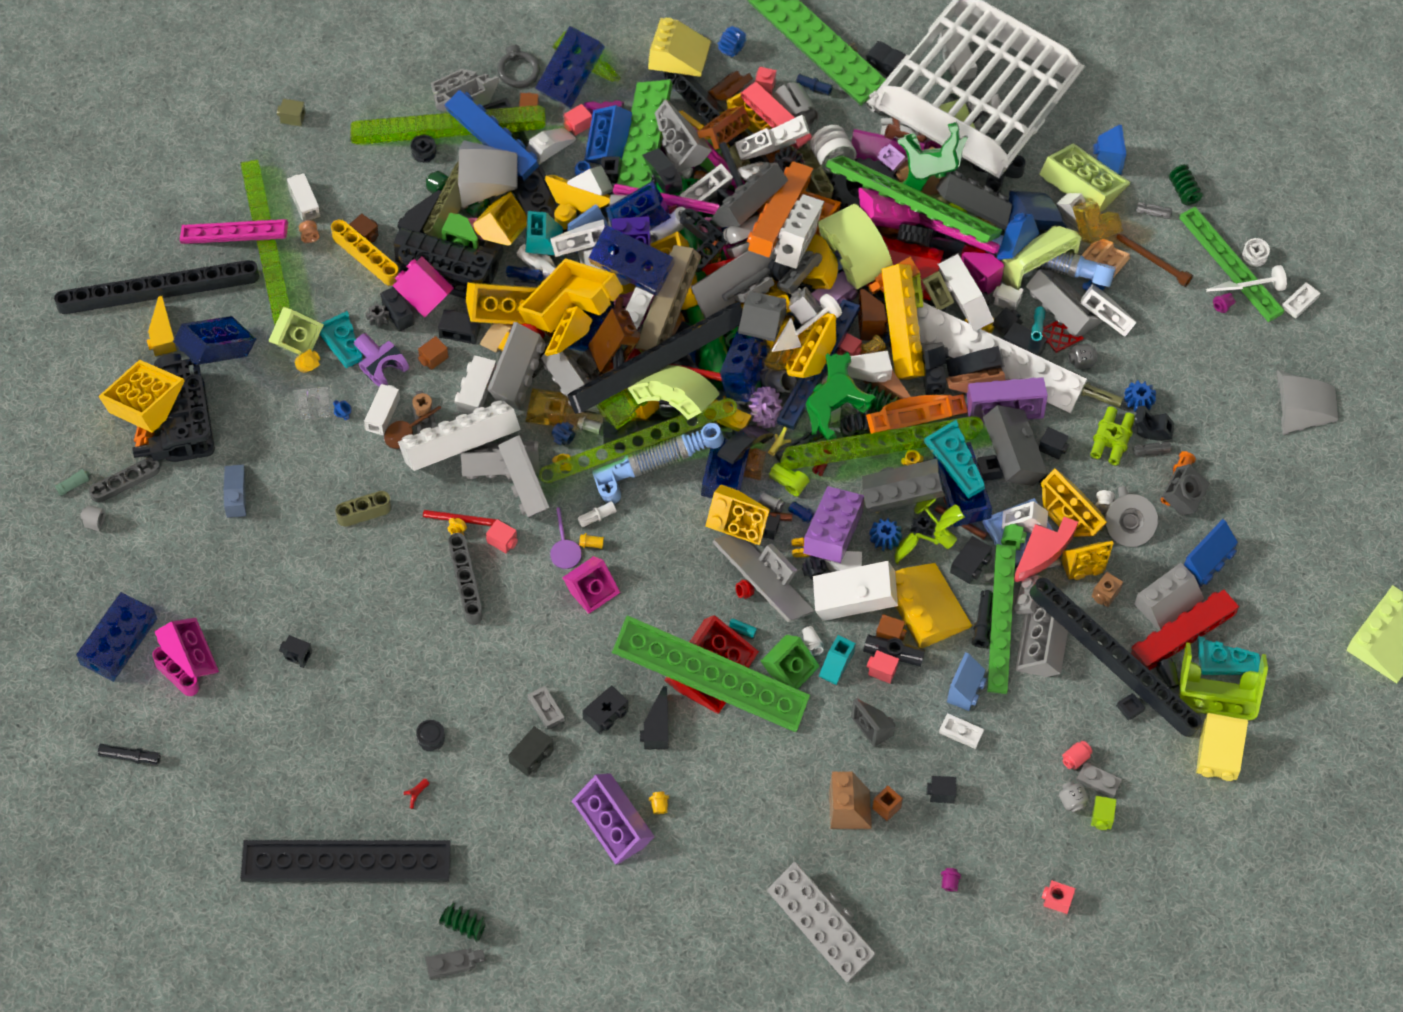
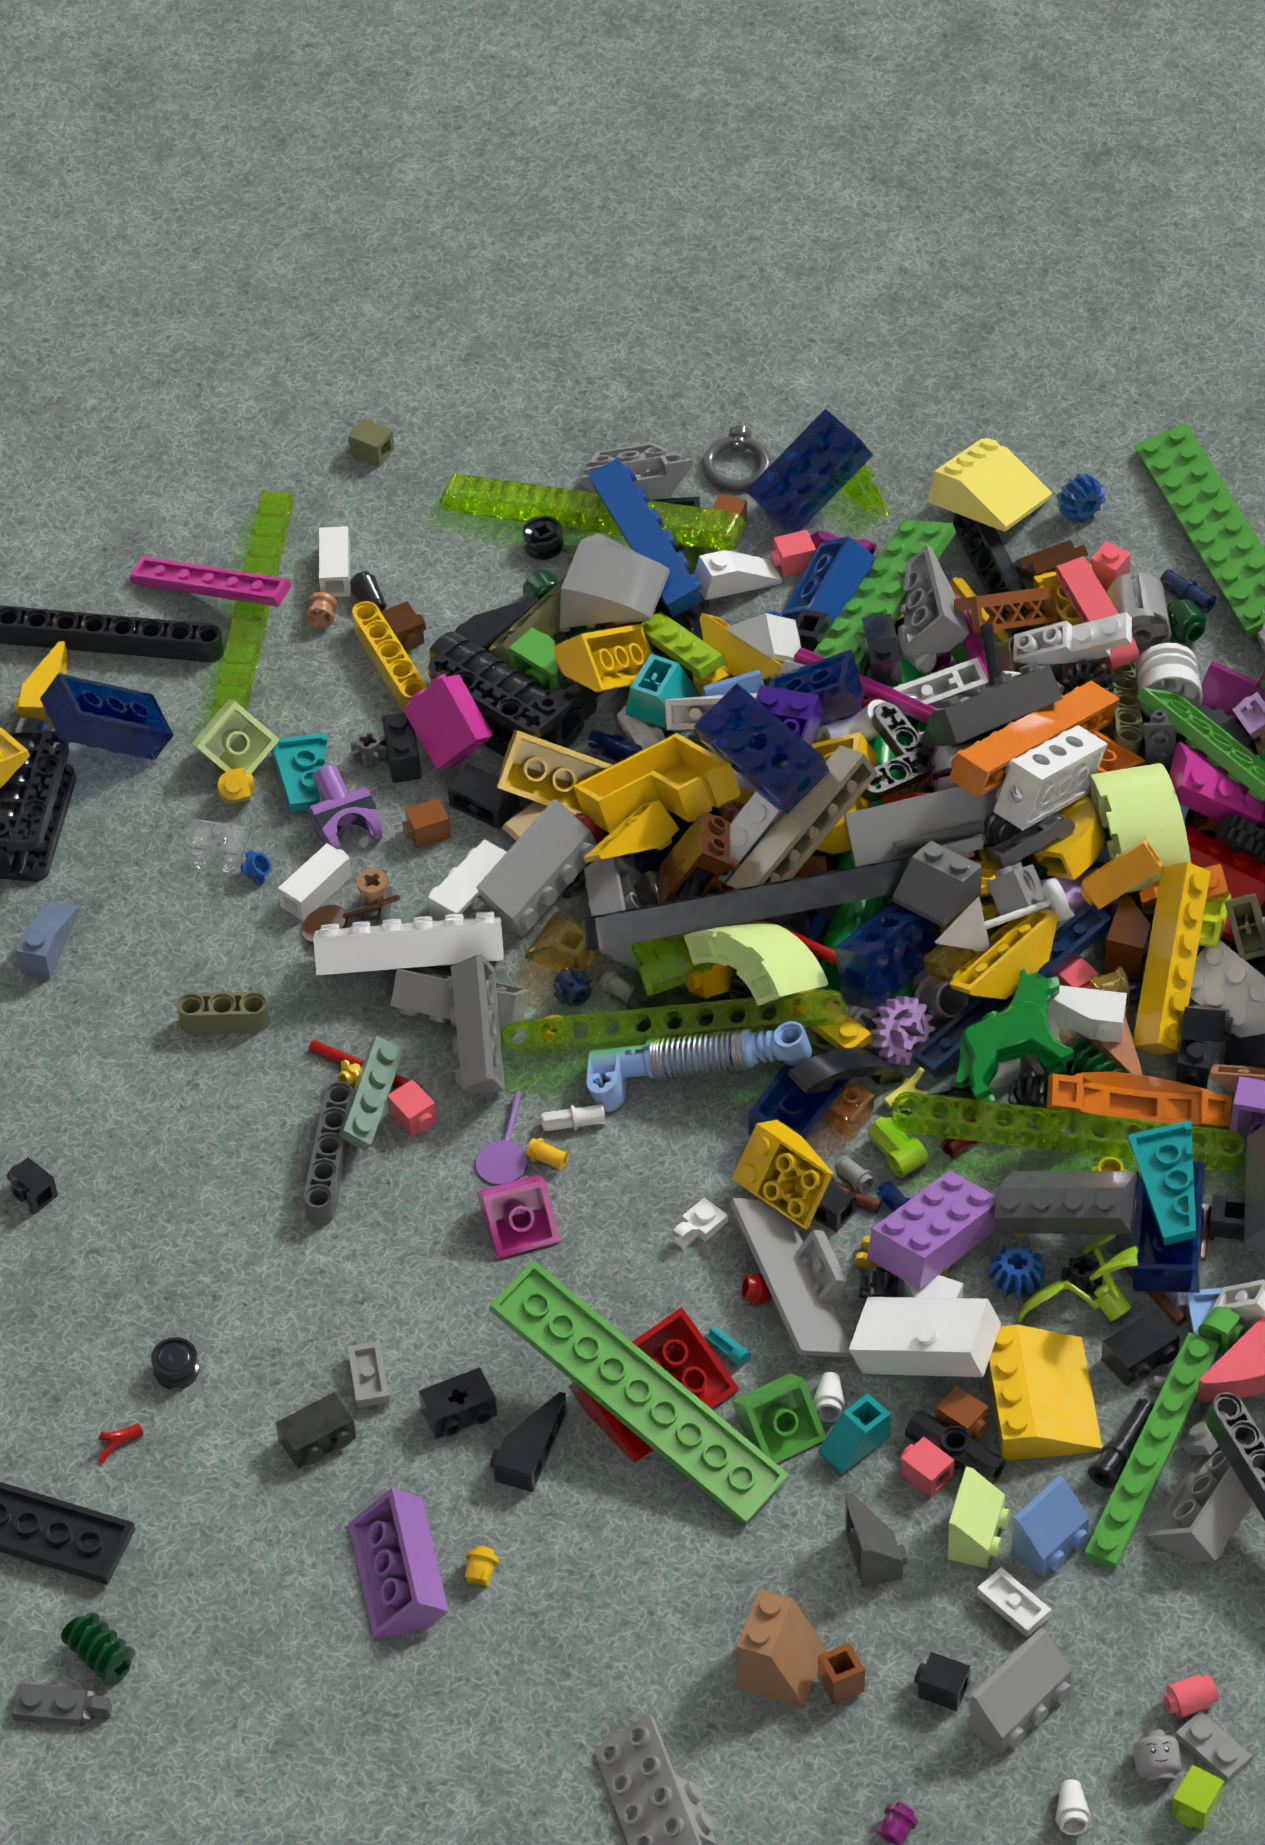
camera: 25 degrees right, 10 degrees down
(331, 211) = (366, 588): none -> black cone
(475, 535) = (370, 1093): none -> sand green plate
(542, 199) = (682, 645): none -> lime plate
(696, 557) = (702, 1221): none -> white plate
(823, 104) = (1186, 621): none -> dark green head
(849, 189) = (1159, 739): none -> dark grey hinge
(858, 279) = (1121, 874): none -> light orange brick
(924, 691) = (976, 1521): none -> yellowish green slope
(989, 784) = (1020, 1693): none -> light grey slope
(1040, 841) = (1072, 1808): none -> white cone

